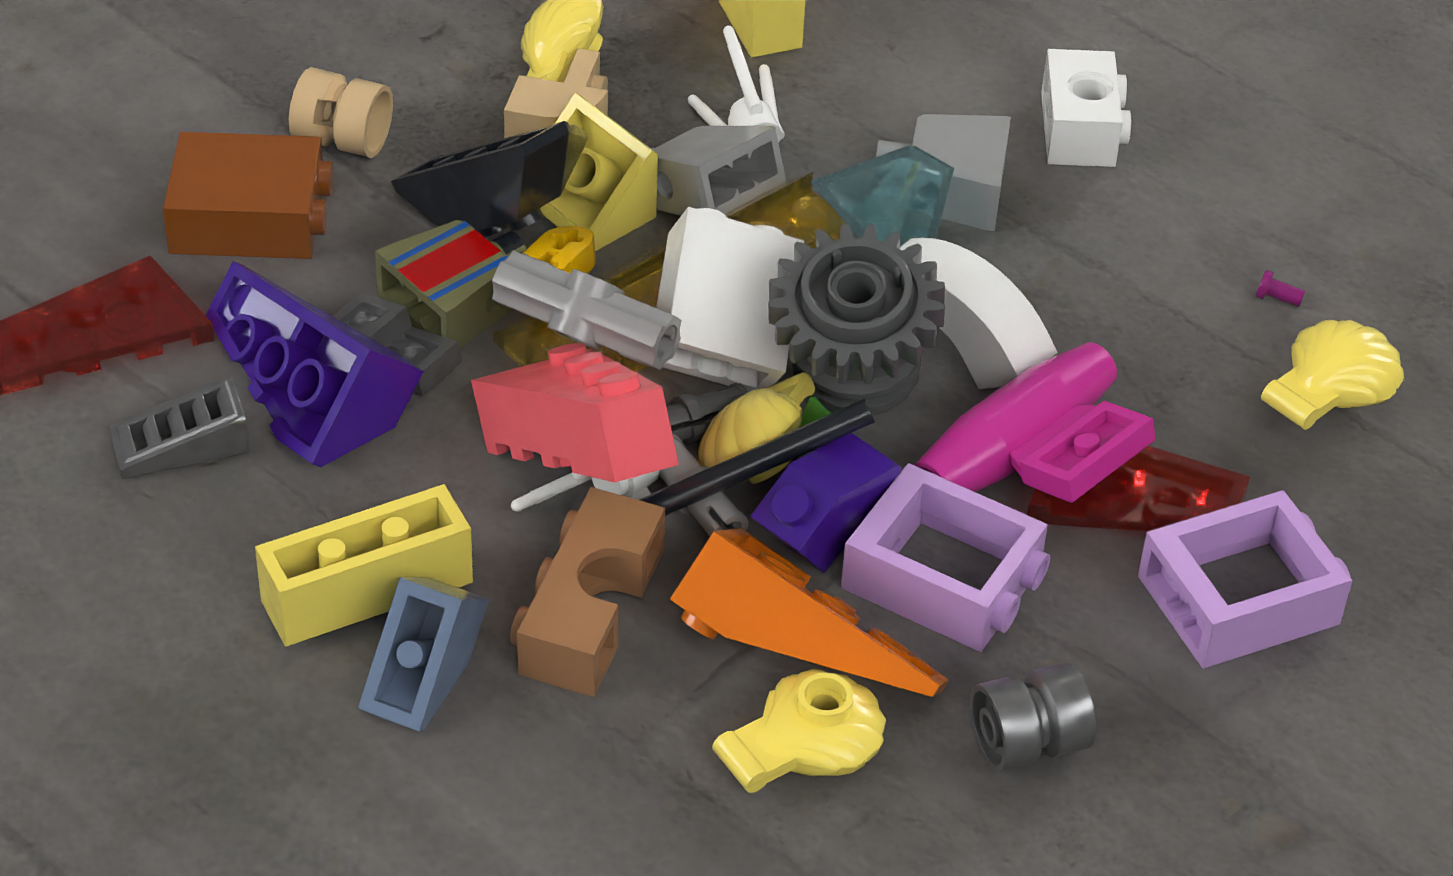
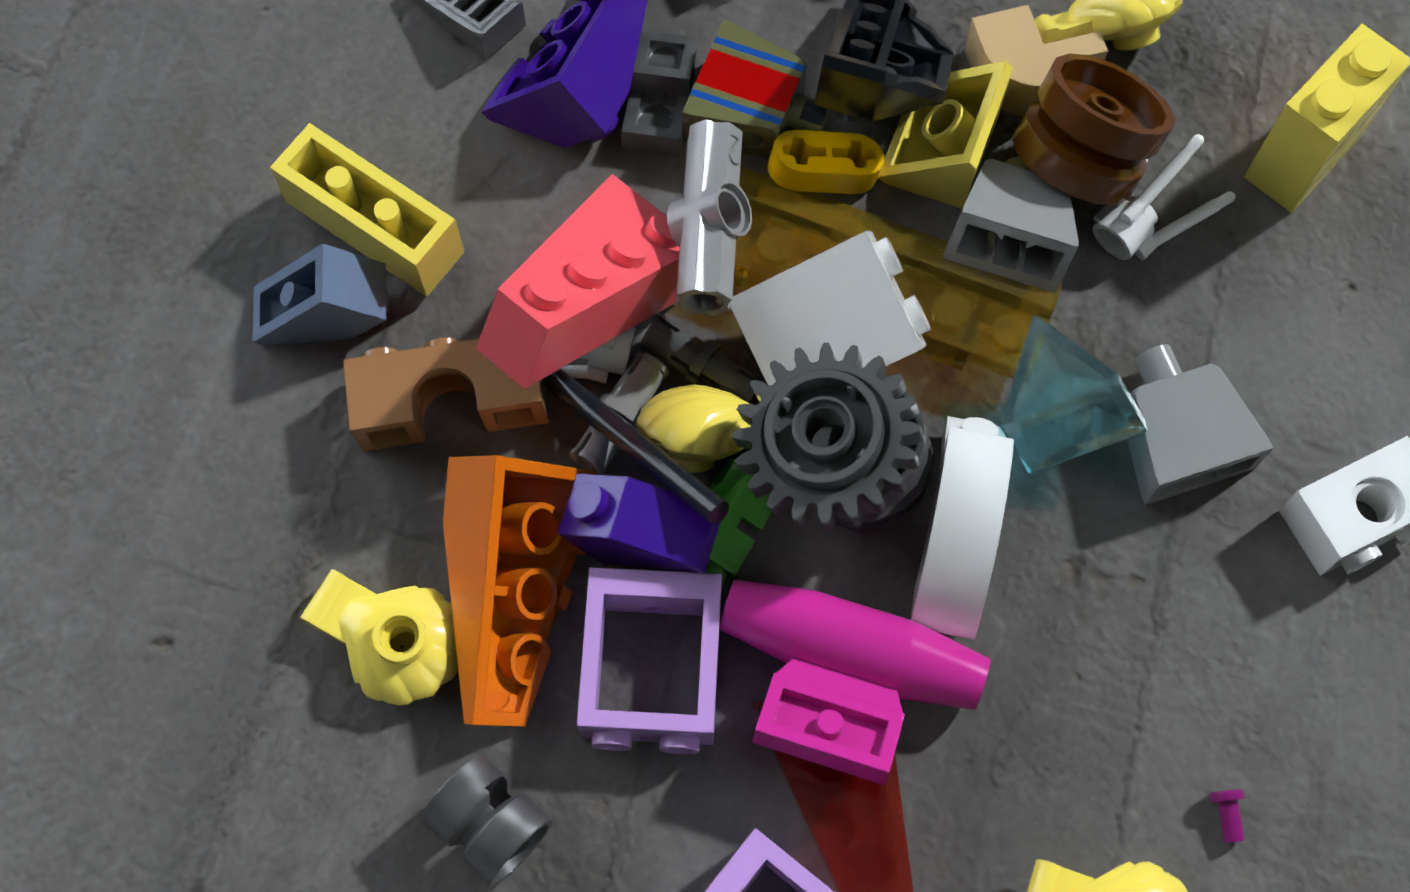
camera: 65 degrees right, 25 degrees up
(667, 74) = (1092, 129): none -> reddish brown wheel

